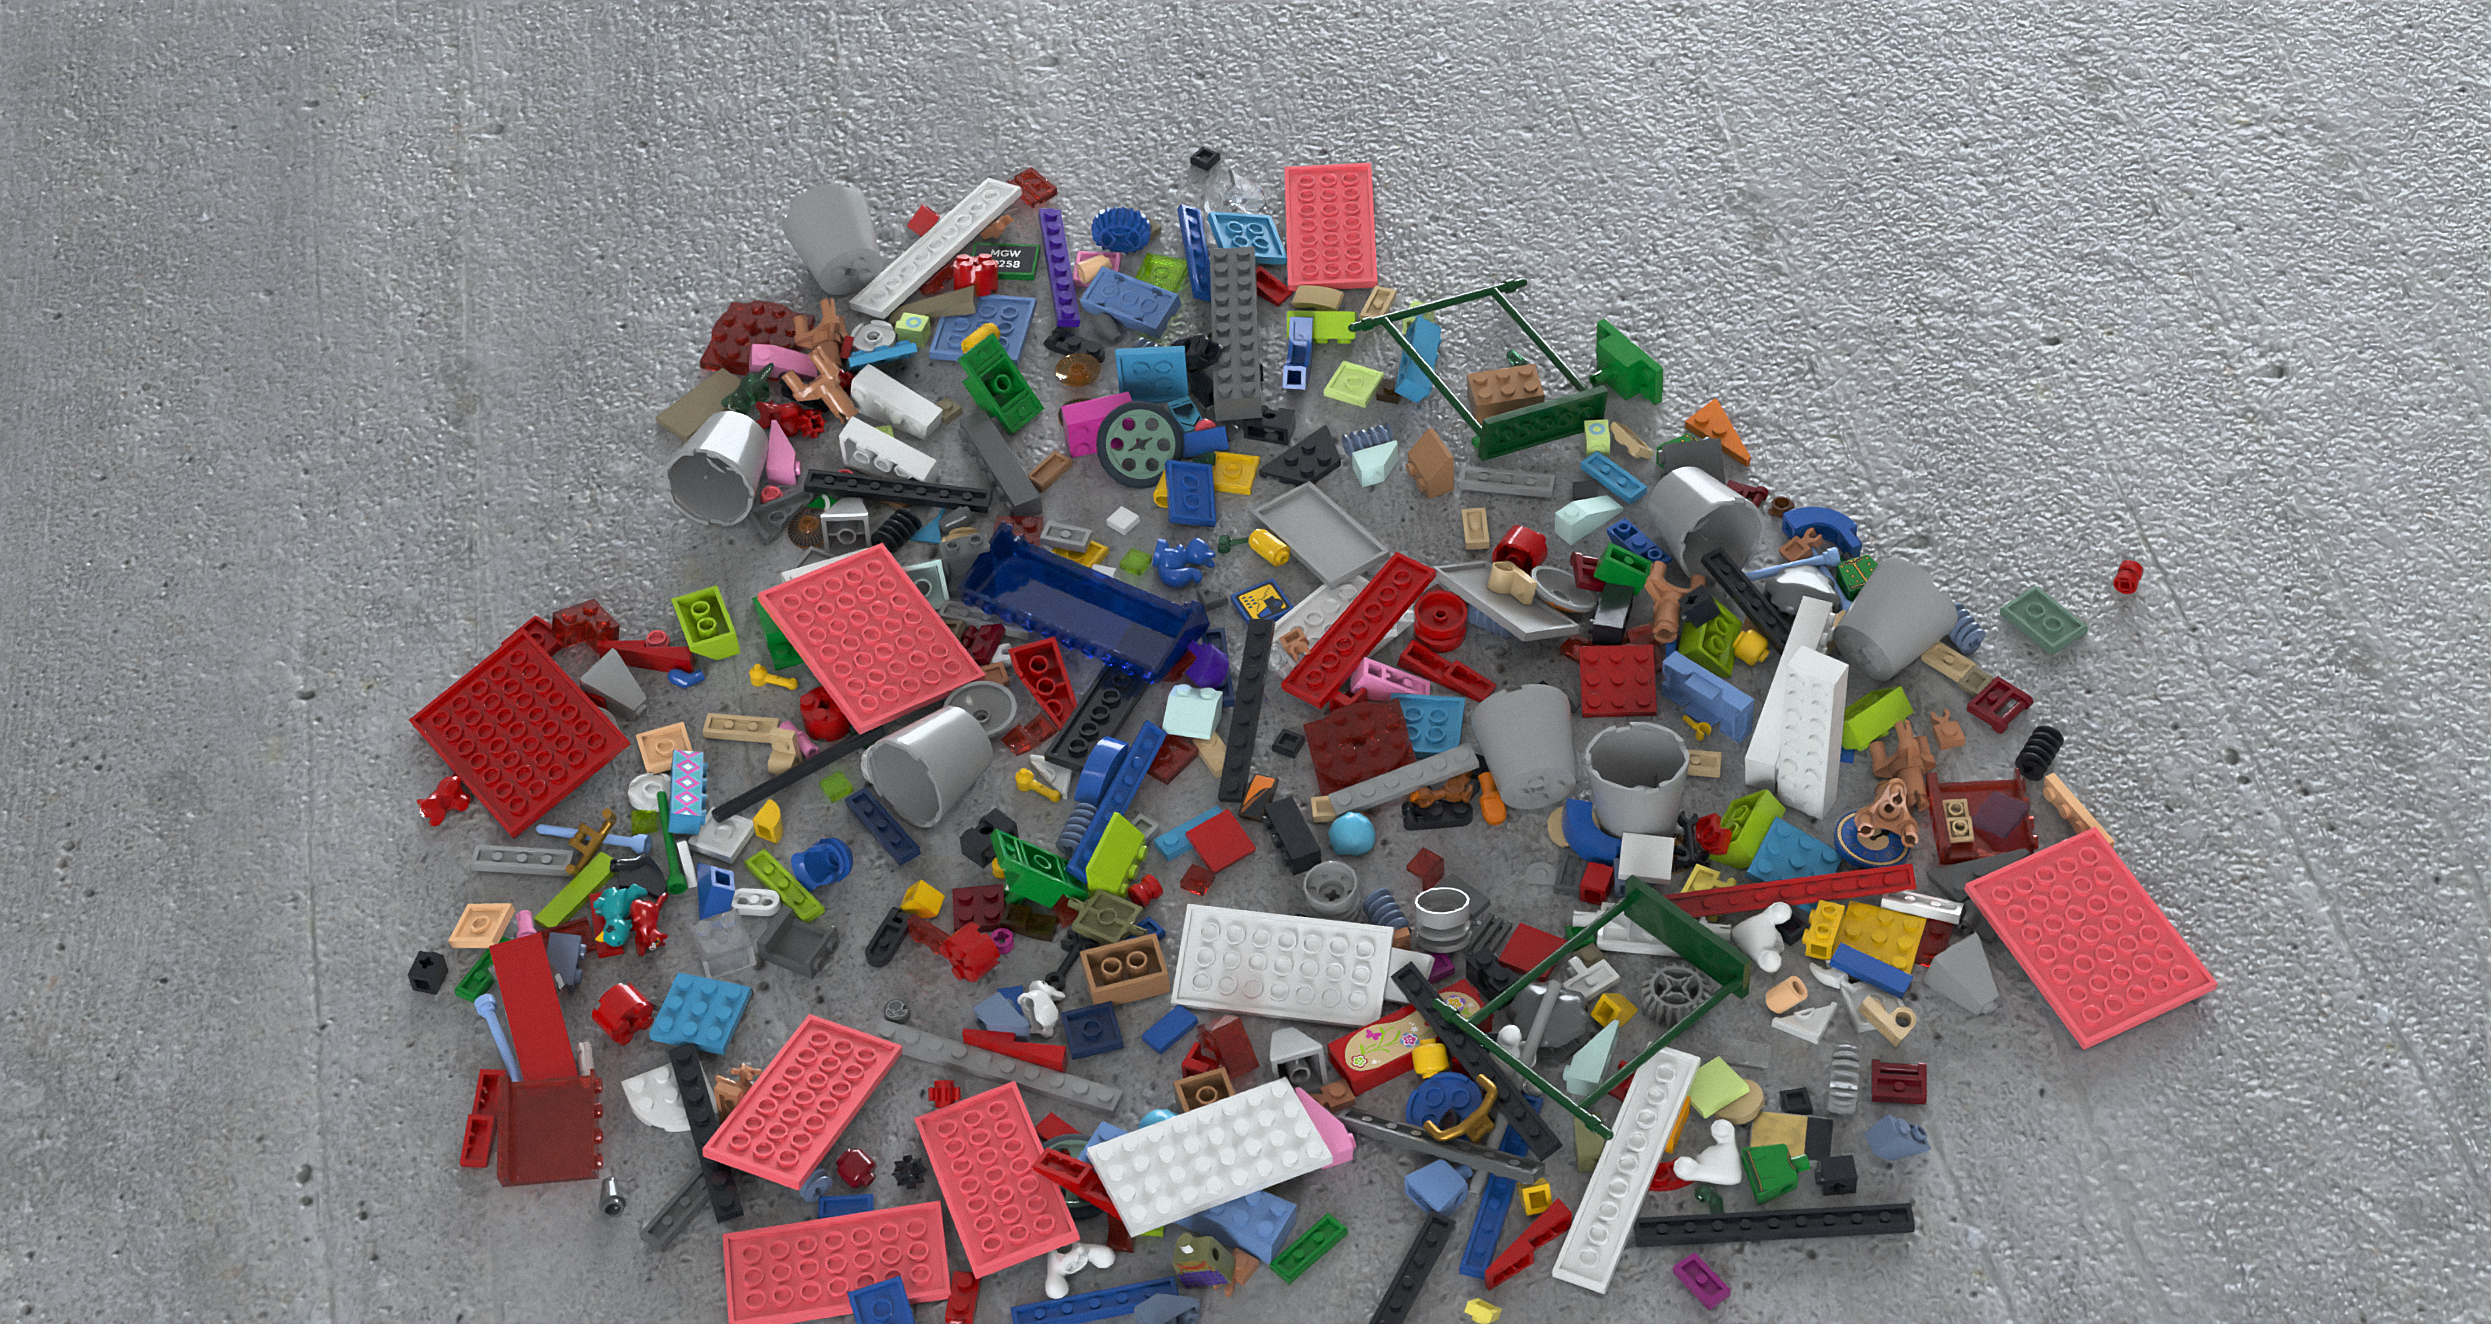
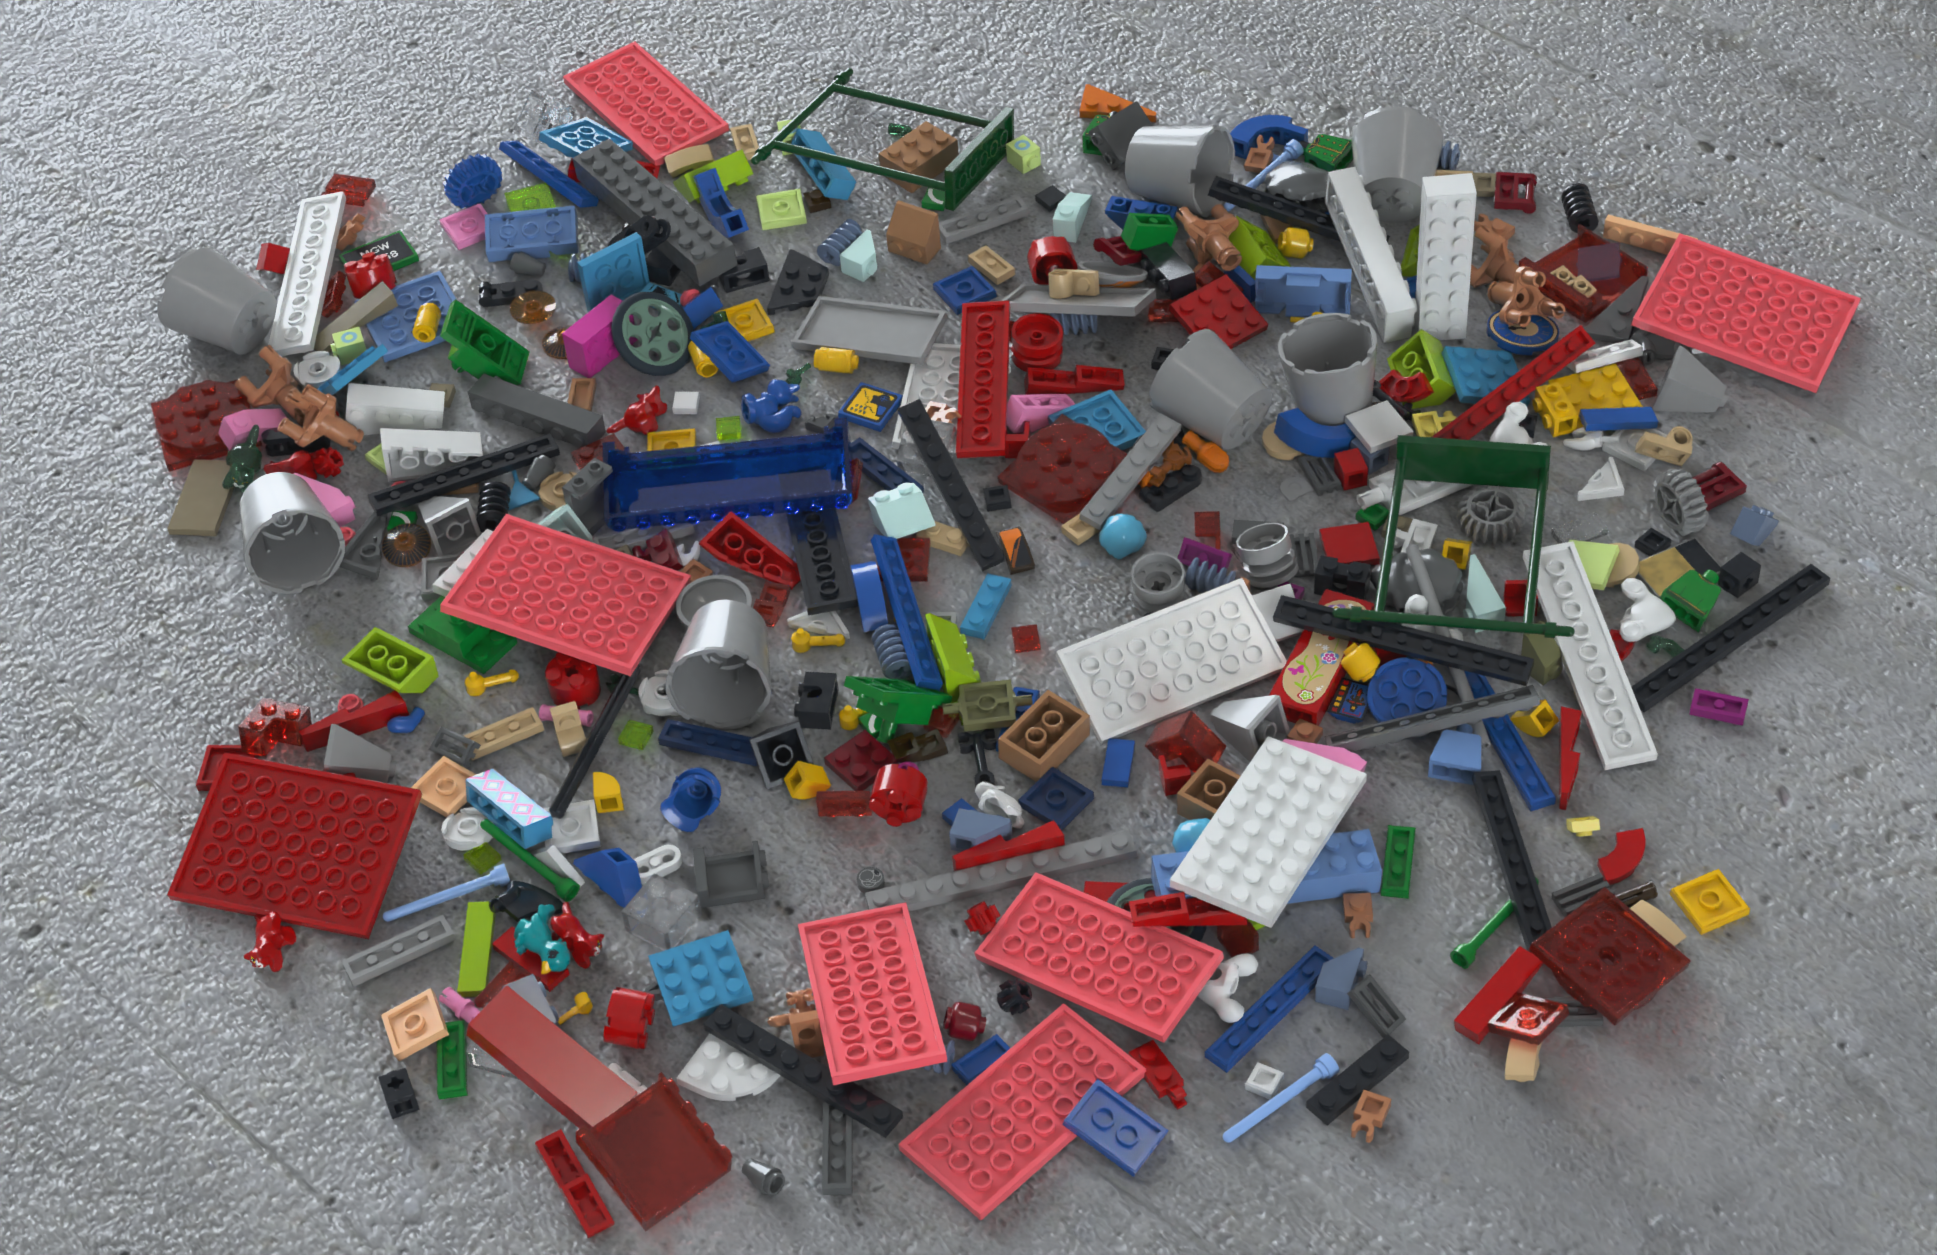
camera: 35 degrees left, 0 degrees up
(487, 1006) = (485, 1090): light blue piece -> none
(596, 840) = (457, 892): pearl gold piece -> none
(606, 984) = (583, 1006): none -> yellow hand
(700, 725) = (467, 753): none -> dark grey tile
(790, 891) = (653, 835): lime tile -> none
(847, 346) = (302, 380): red tile -> none
(887, 938) = (806, 826): black plate -> none
(920, 861) = (778, 751): none -> black slope
(1059, 268) = (437, 238): dark purple plate -> none
(1066, 537) = (655, 435): light grey plate -> none
(1077, 512) = (642, 415): none -> red animal
(1089, 268) = (472, 223): light nougat brick -> none
(1147, 889) = (994, 667): red wheel -> none
(1202, 1262) = (1335, 918): olive torso -> none
(1205, 158) = (482, 102): black tile -> none
(1209, 667) = (885, 468): dark purple brick -> none
(1220, 841) = (1019, 598): red tile -> none
(1291, 835) = (1074, 562): black brick -> none
(1398, 1088) = (1349, 701): none -> piece
(1400, 890) = (1192, 549): none -> magenta plate
(1435, 540) = (964, 287): none -> blue tile
(1449, 1120) = (1424, 699): black piece -> none
(1475, 1124) = (1451, 685): pearl gold piece -> none
(1613, 477) = (1064, 176): dark azure plate -> none
(1625, 366) = (997, 87): green brick -> none
(1627, 437) = (1061, 147): tan plate -> none
(1698, 607) = (1242, 225): black brick -> none
(1786, 995) = (1574, 469): light nougat brick -> none
(2043, 620) = (1484, 120): sand green tile -> none
(2128, 577) = (1517, 61): red wheel -> none

